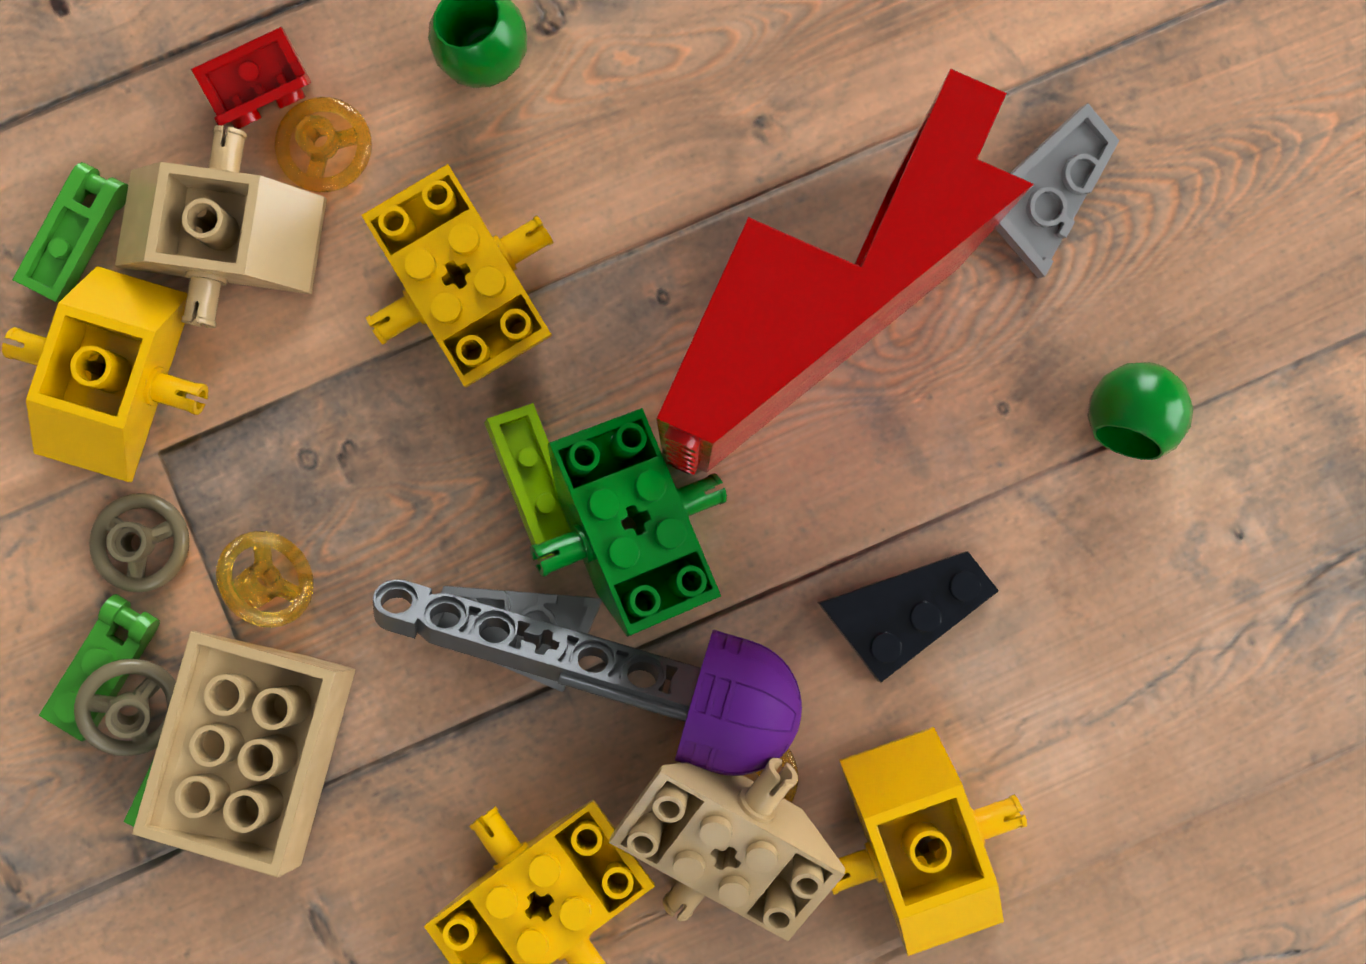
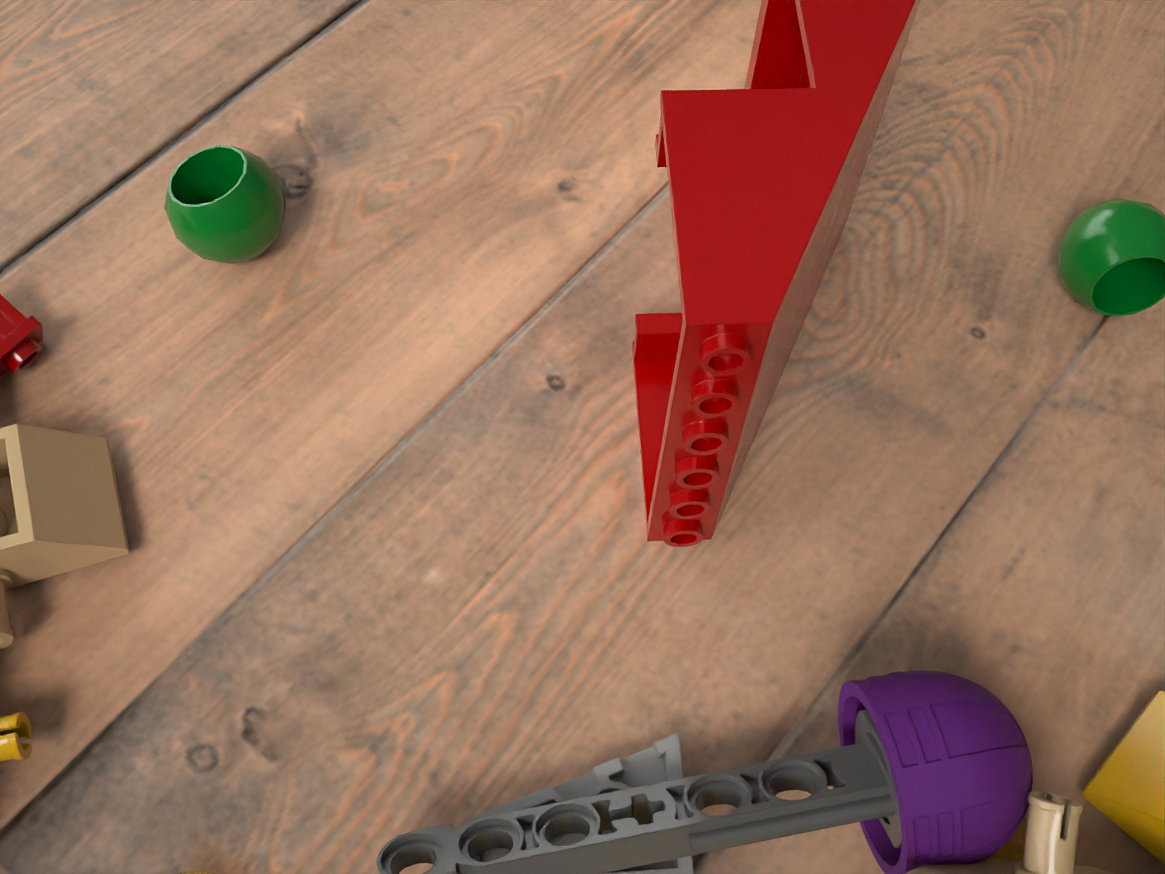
camera: 30 degrees left, 25 degrees down
(313, 127) = (76, 377): clear yellow piece -> none
(429, 240) = (308, 445): yellow slope -> none
(528, 471) = (519, 636): lime plate -> none
(639, 572) = (663, 619): green slope -> none
(908, 612) = (1031, 580): black wing -> none
(1062, 176) = (898, 148): light grey wing -> none

